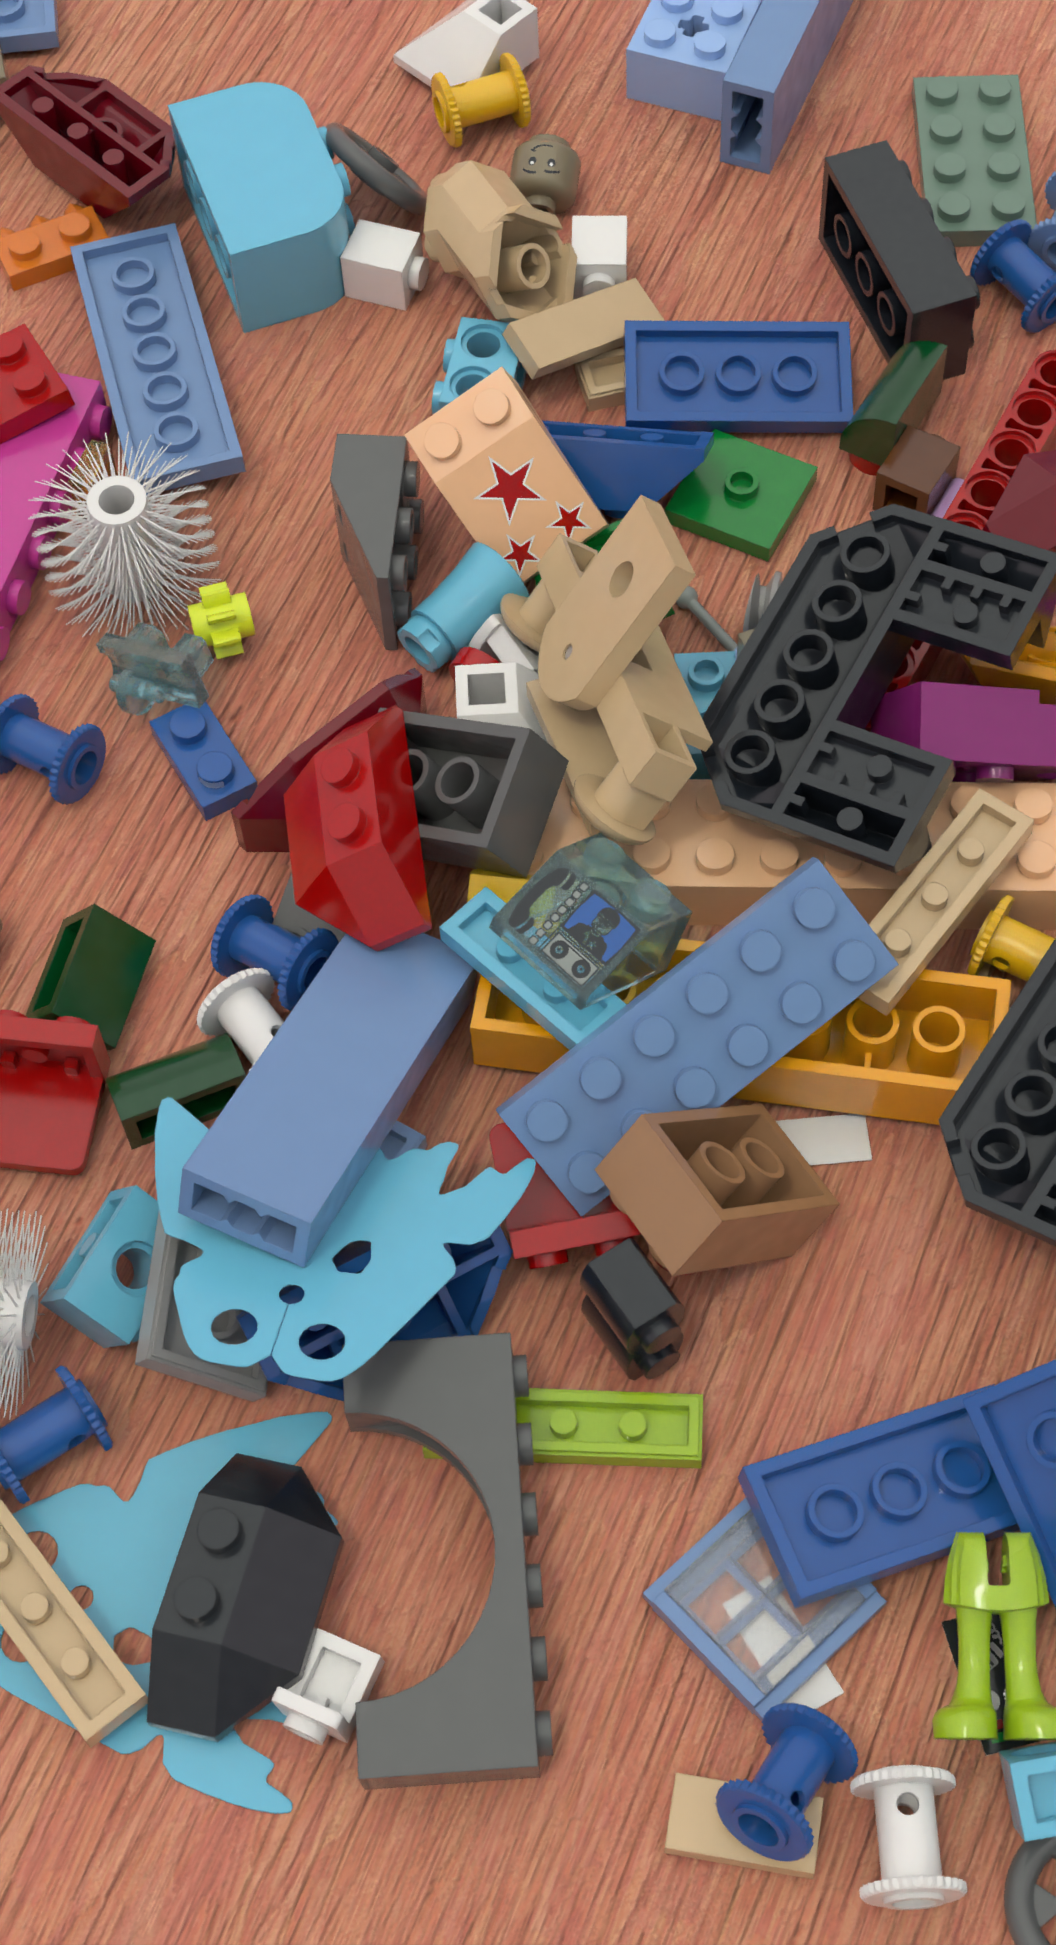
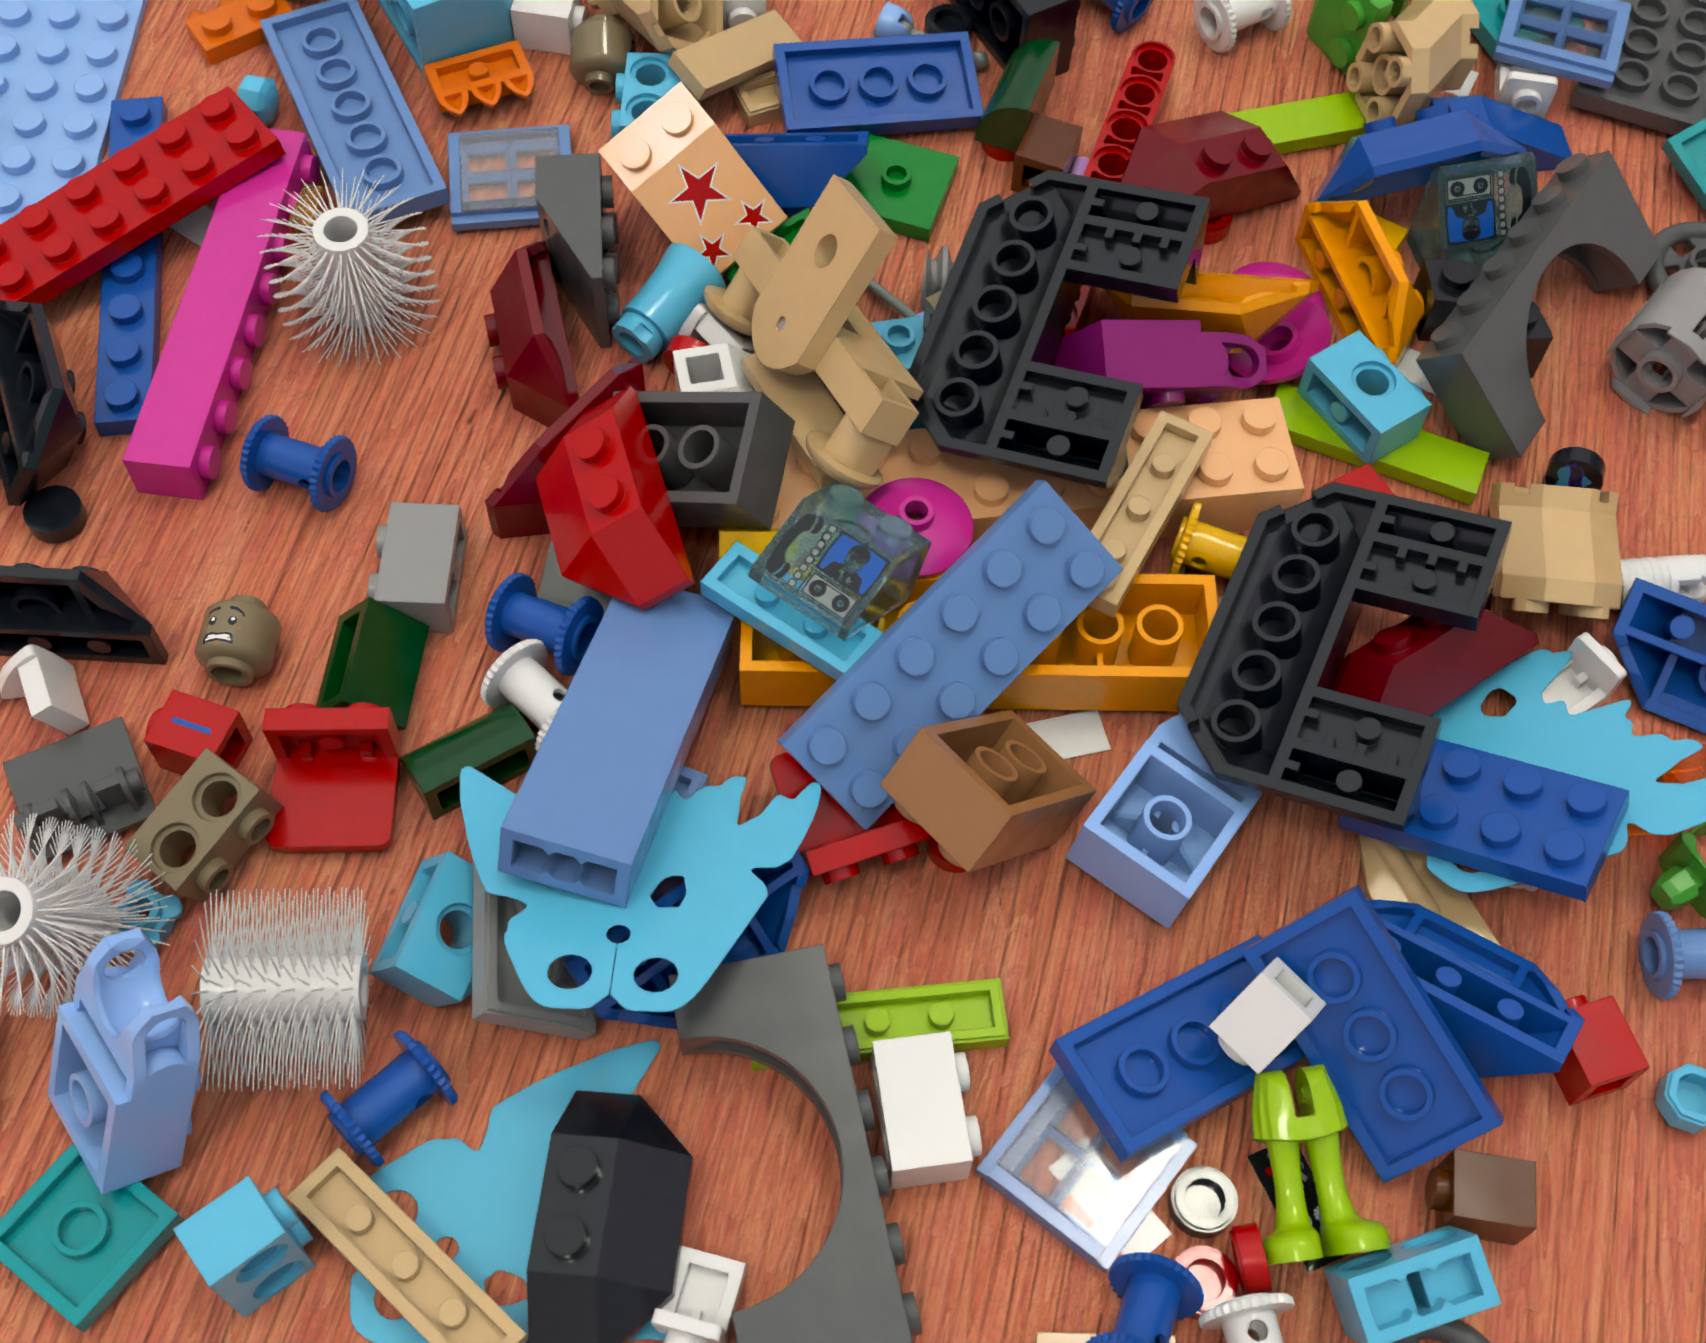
camera: 15 degrees left, 0 degrees up
(58, 336) = (260, 96): none -> medium azure tile
(152, 671) = (392, 384): clear light blue hips -> none
(157, 871) = (421, 562): none -> light grey brick
(204, 759) = (449, 457): blue piece -> none
(222, 619) = (448, 333): neon yellow gear -> none
(296, 441) = (496, 174): none -> clear piece
(299, 331) = (480, 77): none -> orange plate
(310, 631) = (531, 337): none -> dark red wedge
(433, 312) = (600, 52): none -> dark tan head
(592, 1523) = (923, 1110): none -> white brick
(633, 1310) = (929, 910): black brick -> none
(720, 886) = (945, 520): none -> dark pink dish
(774, 303) = (898, 22): none -> light blue hinge
(834, 304) = (948, 19): none -> black tile
(874, 1738) = (1214, 1272): none -> tile
(882, 1663) = (1202, 1202): none -> tile
(905, 1251) = (1161, 825): none -> light blue brick
(917, 1729) = (1250, 1259): none -> red tile
(975, 1471) = (1266, 1016): none -> white brick

